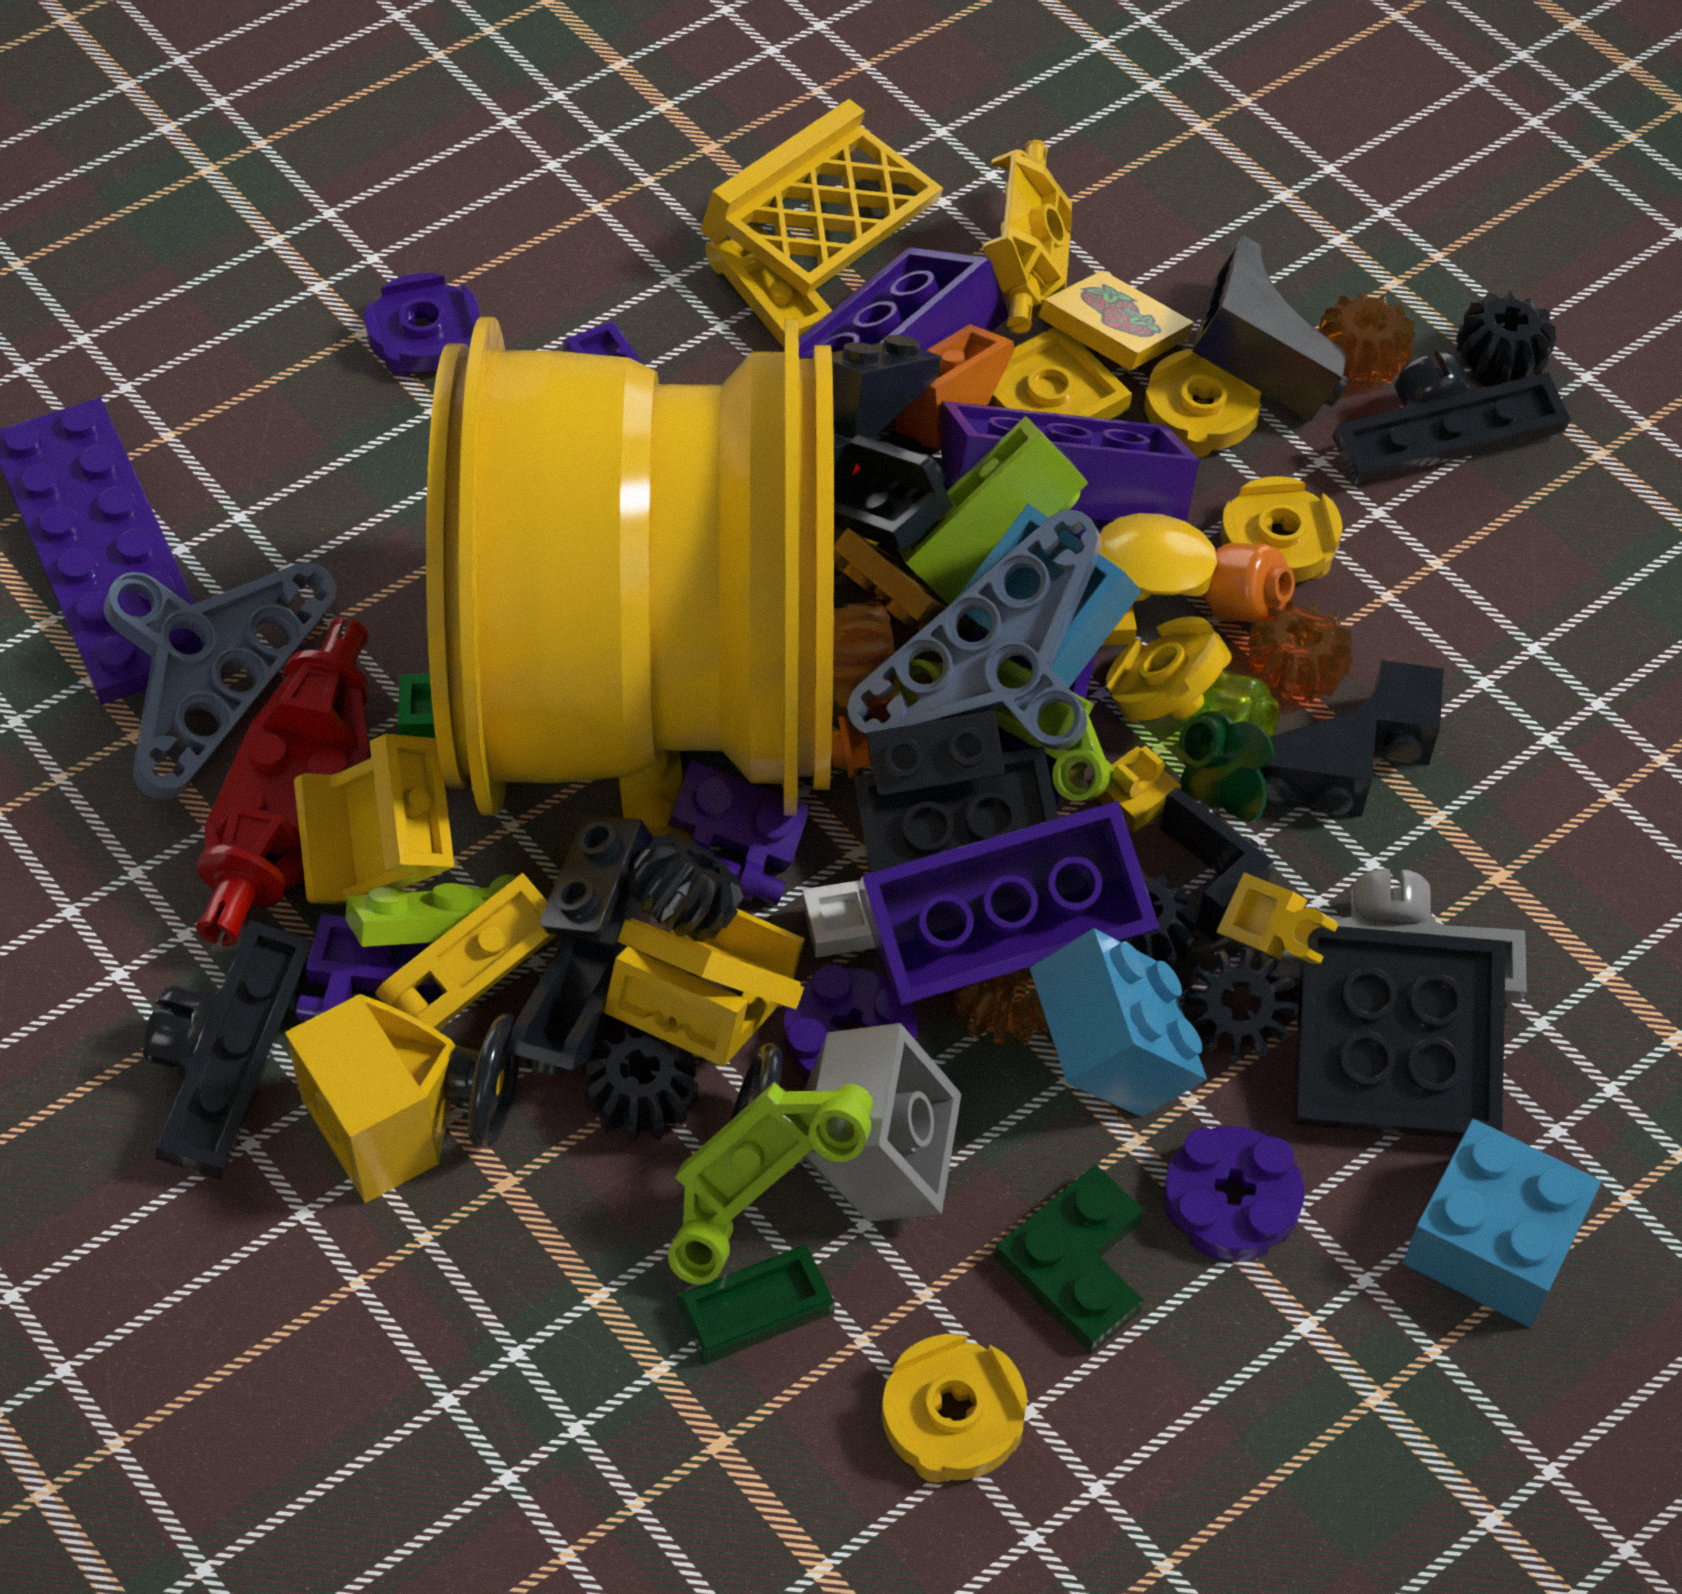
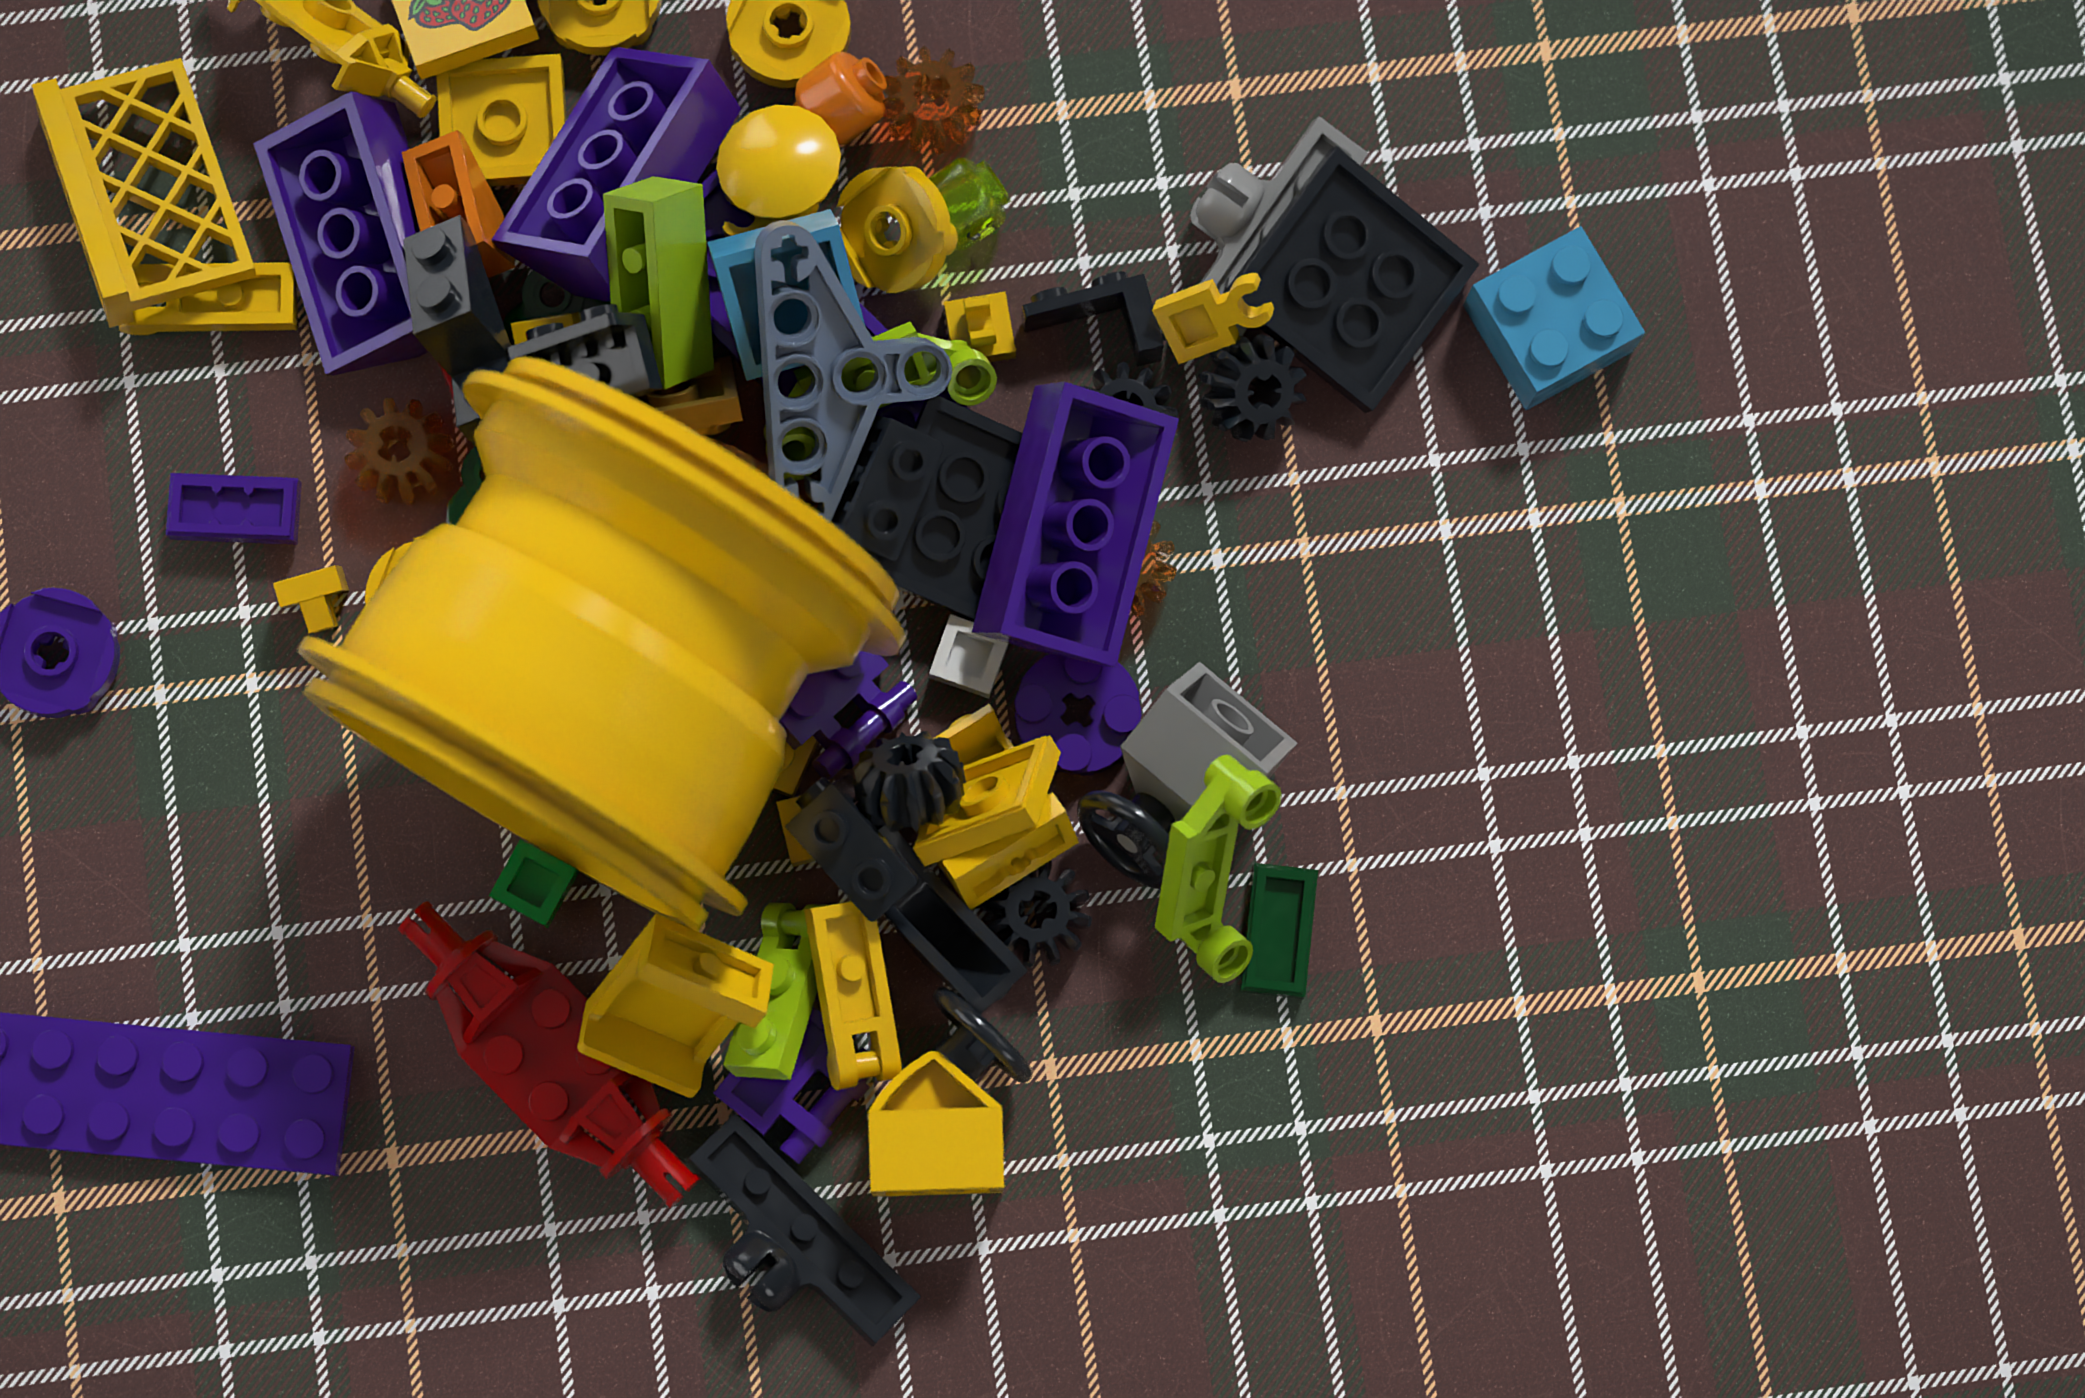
camera: 65 degrees left, 25 degrees up
(194, 681) = (386, 1084): sand blue beam -> none
(945, 1447) = (1486, 807): yellow plate -> none
(1061, 1262) = (1373, 672): dark green plate -> none
(1118, 1023) = (1227, 502): dark azure piece -> none
(1226, 764) = (1028, 249): dark green plate -> none
(1241, 1156) = (1396, 464): dark purple plate -> none
(1332, 760) = (1066, 147): black arch -> none

